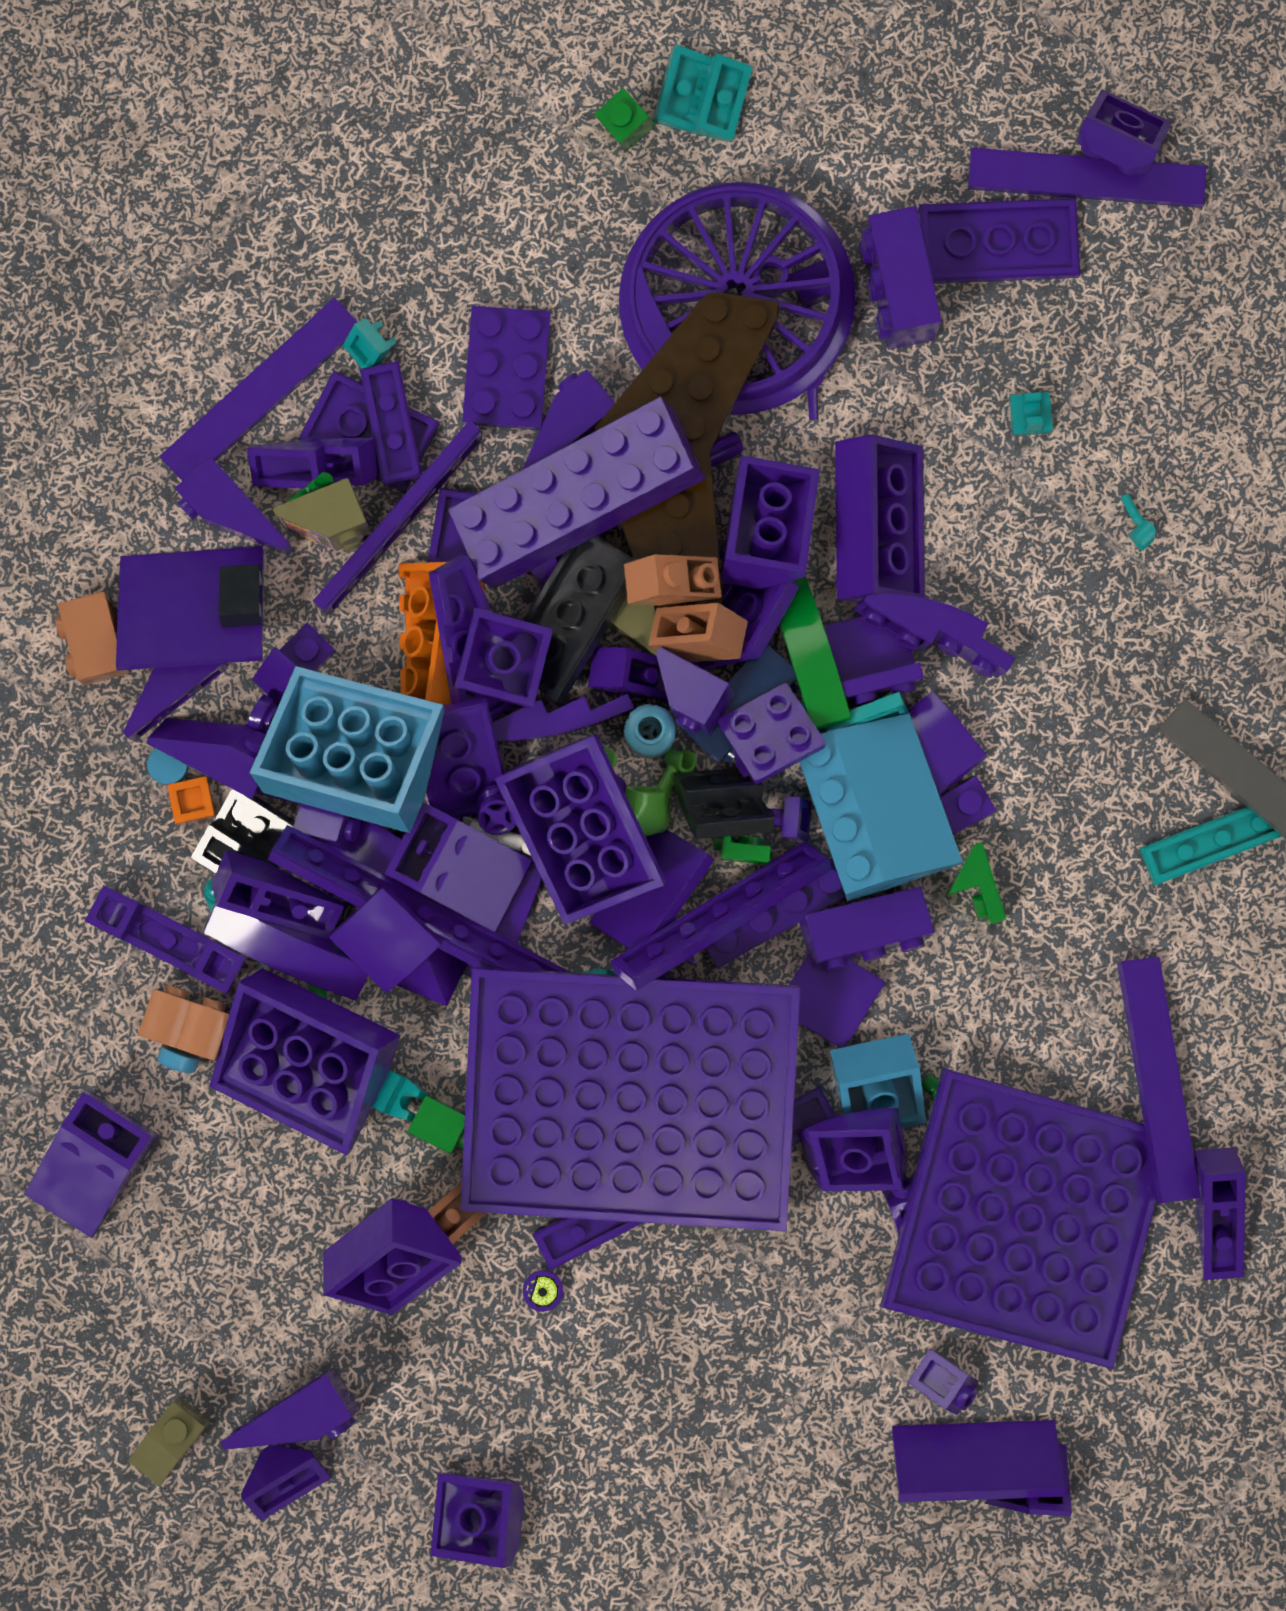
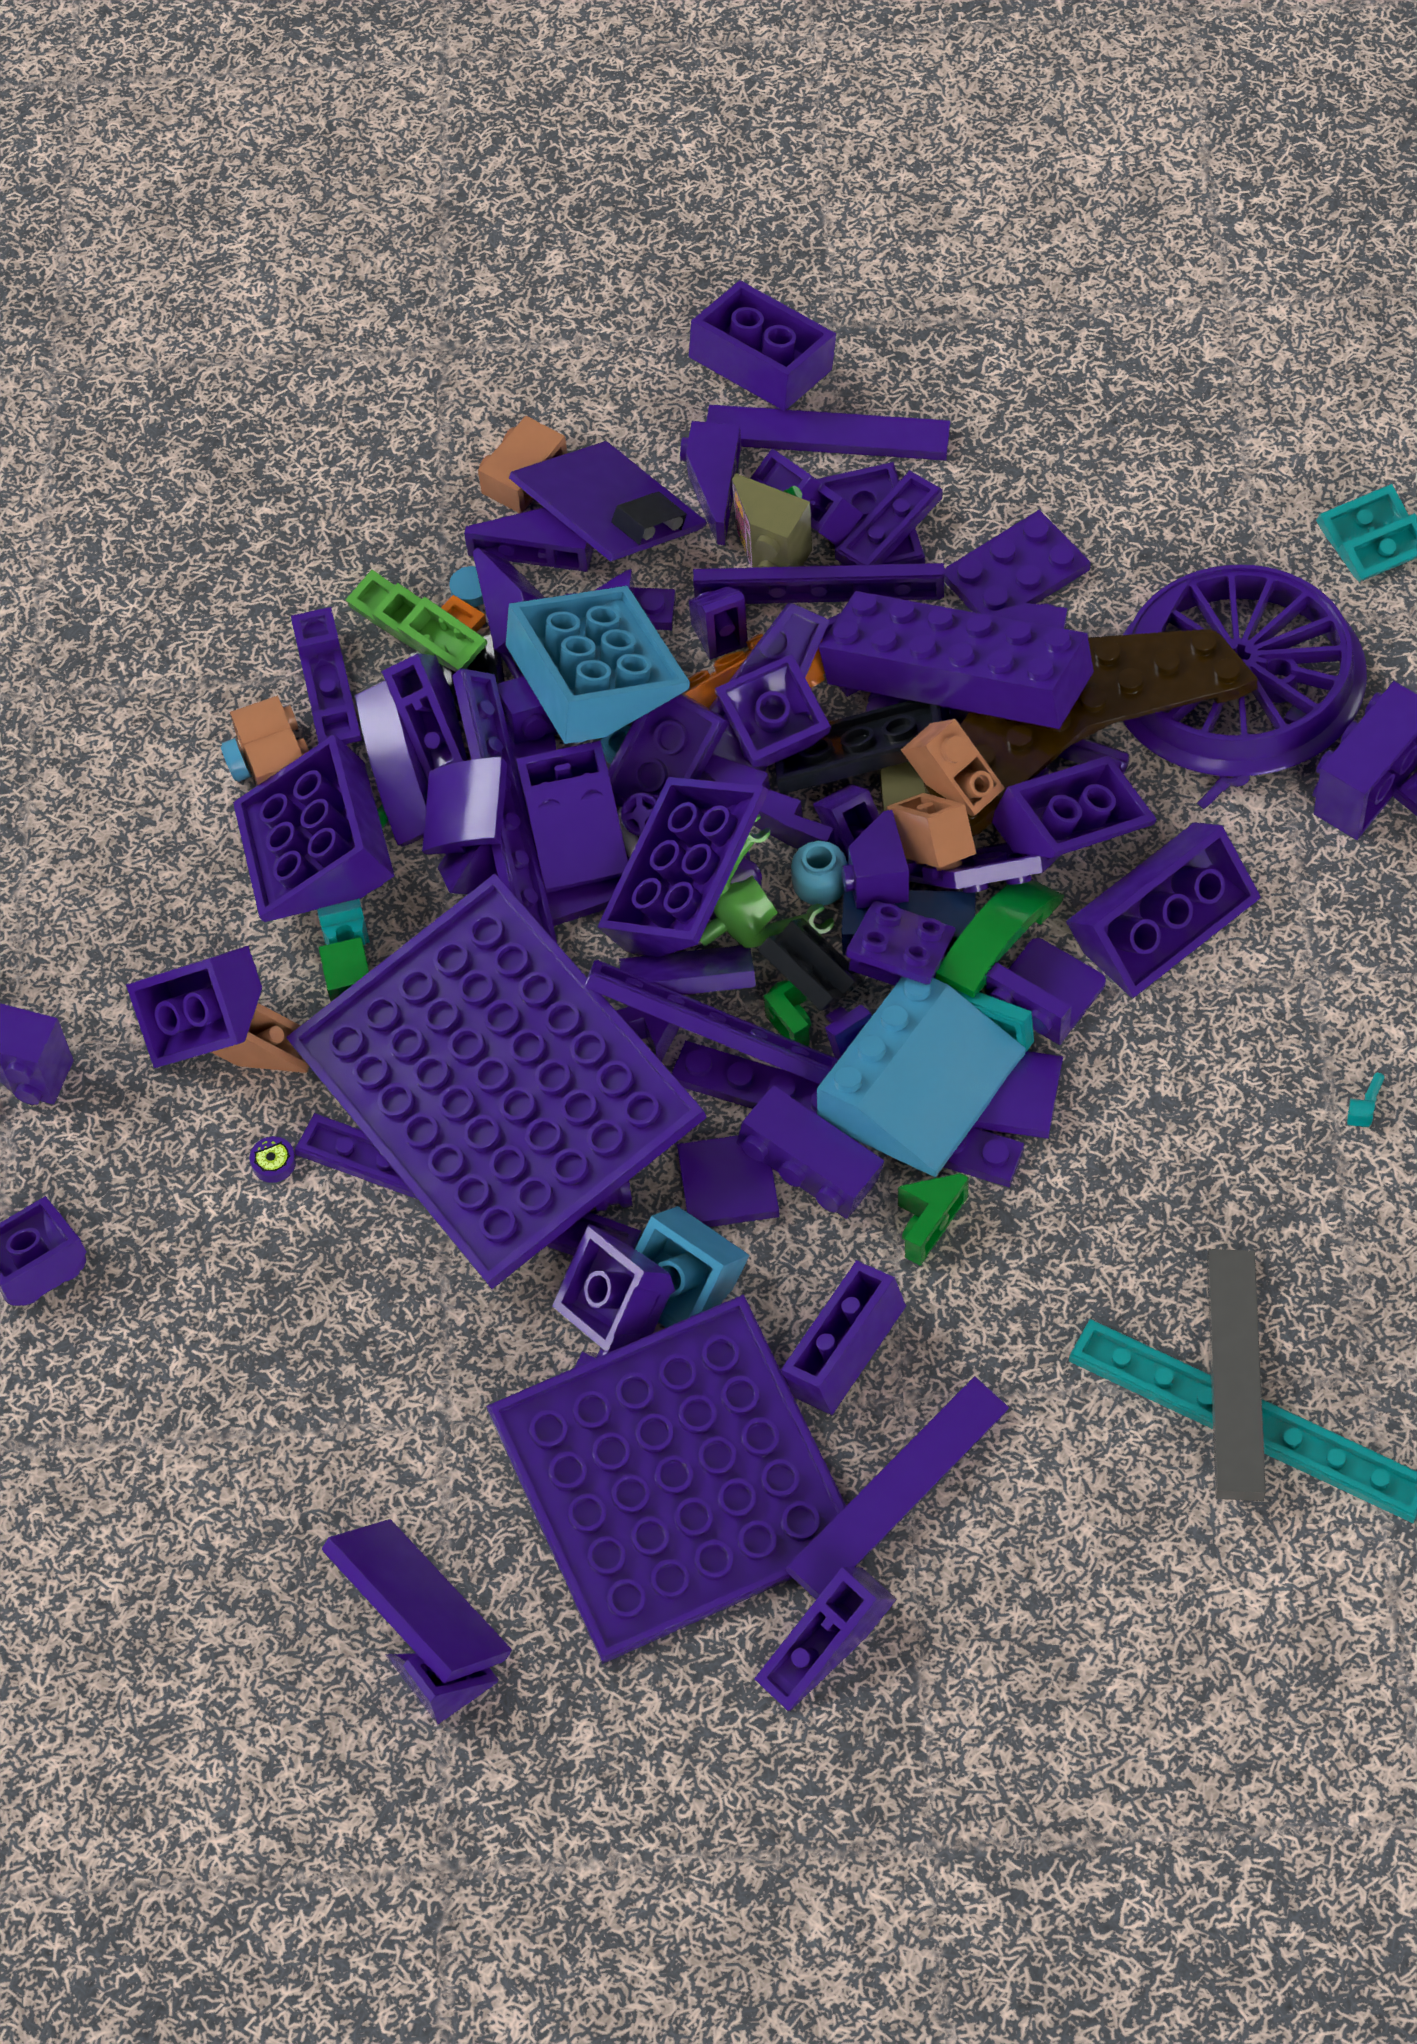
camera: 55 degrees right, 25 degrees down
(90, 1162) = (98, 760): dark purple slope -> none
(148, 376) = (762, 345): none -> dark purple brick
(175, 835) = (416, 621): none -> bright green slope
(367, 345) = (936, 464): teal tile -> none
(367, 616) = (719, 621): none -> dark purple slope
(625, 119) = (1293, 492): green brick -> none
(923, 620) = (1115, 998): dark purple slope -> none
(944, 1383) = (466, 1530): bracket -> none
(1026, 1025) = (844, 1337): none -> dark purple brick
(1030, 414) = (1372, 950): teal tile -> none

